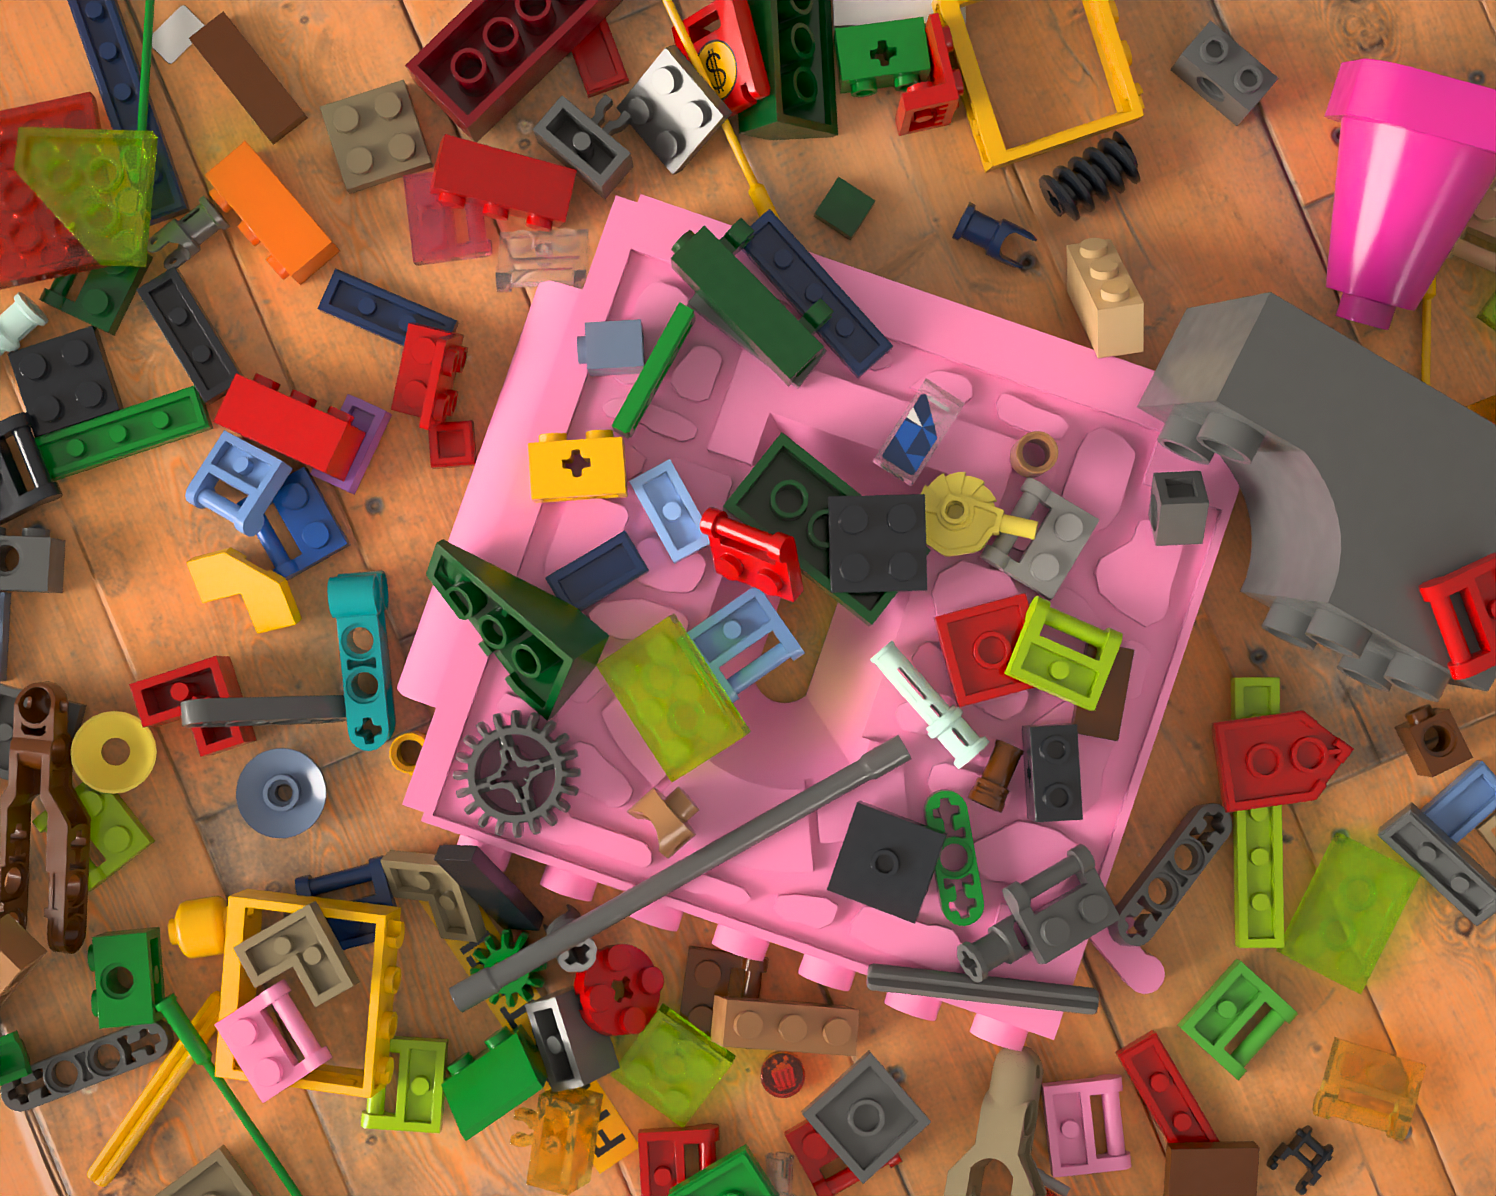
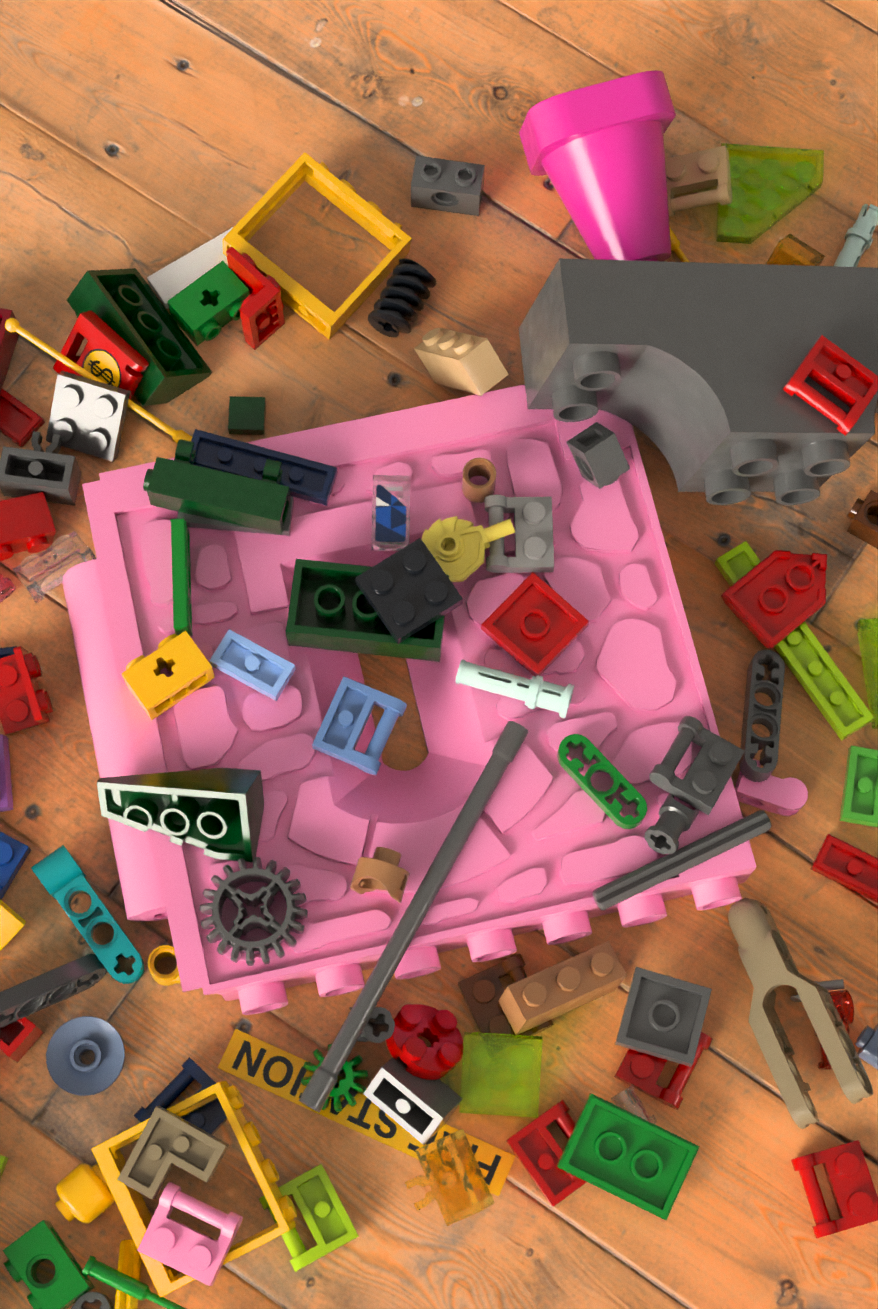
camera: 30 degrees left, 15 degrees down
(422, 878) = (250, 1043): dark tan plate -> none
(452, 445) = (64, 733): red tile -> none
(489, 887) = (283, 1018): black tile -> none
(494, 1080) = (374, 1164): green slope -> none
(598, 572) = (226, 737): dark blue tile -> none
(612, 347) = (142, 579): sand blue brick -> none
(673, 698) = (333, 790): clear neon green plate -> none
(753, 555) = (331, 660): plate -> none
(782, 1074) = (585, 1033): clear red tile -> none
(887, 861) = (557, 810): black plate -> none
(988, 233) = (355, 373): dark blue piece -> none
(992, 786) = (596, 716): reddish brown pin -> none
(1052, 772) = (630, 678): black brick -> none
(1057, 667) = (588, 603): lime plate -> none
(1071, 1126) = (815, 938): bright pink plate -> none
(1108, 714) = (628, 608): reddish brown tile -> none

